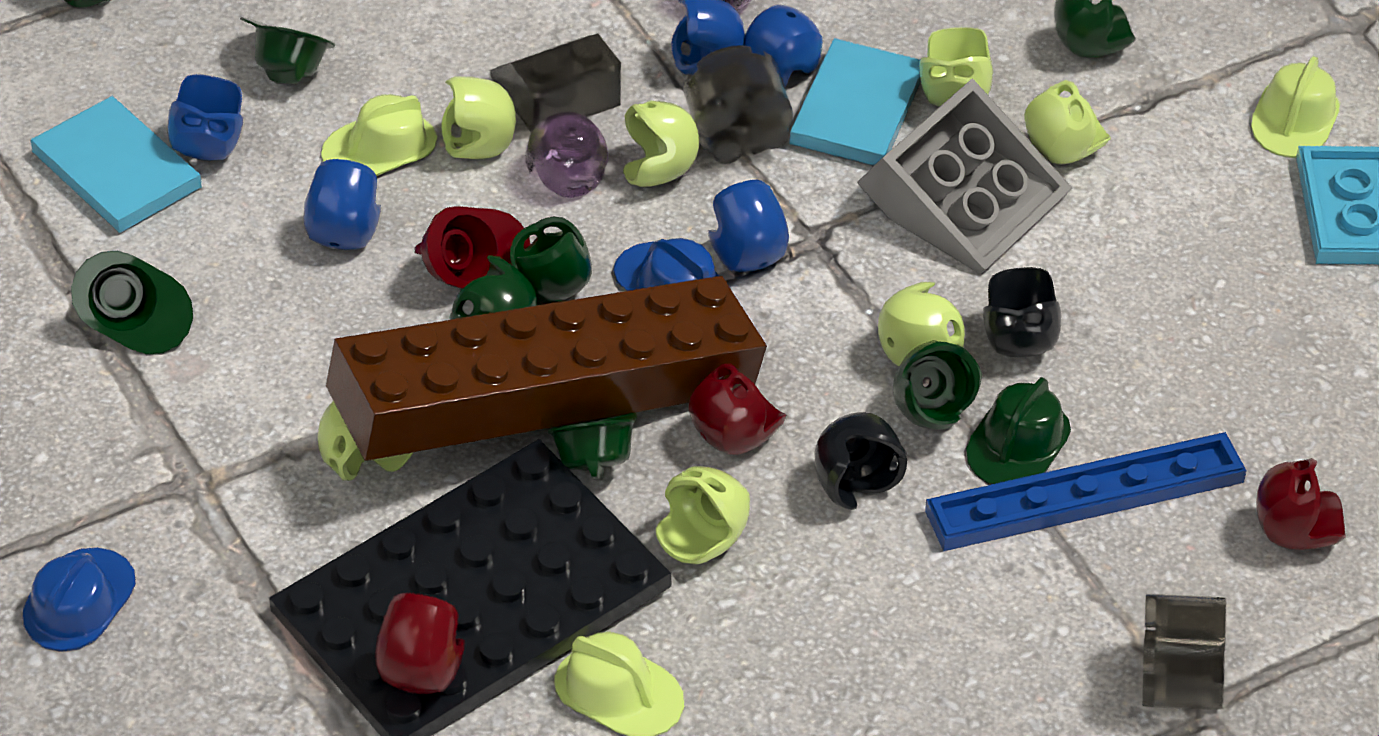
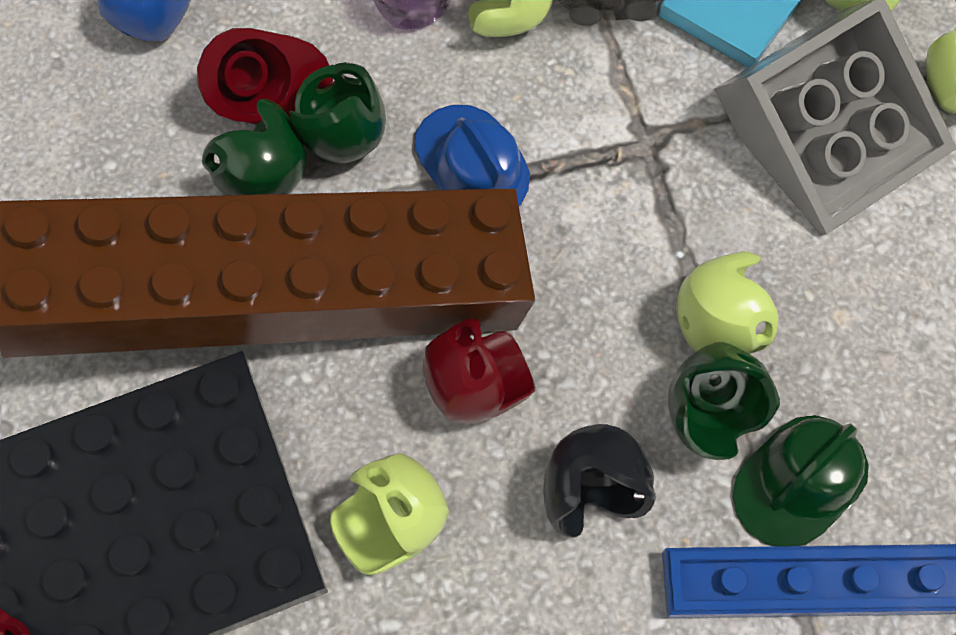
camera: 15 degrees right, 20 degrees up
(595, 443) = (300, 375): dark green piece -> none
(750, 227) = (572, 122): blue helmet -> none
(1022, 312) = (854, 317): black helmet -> none

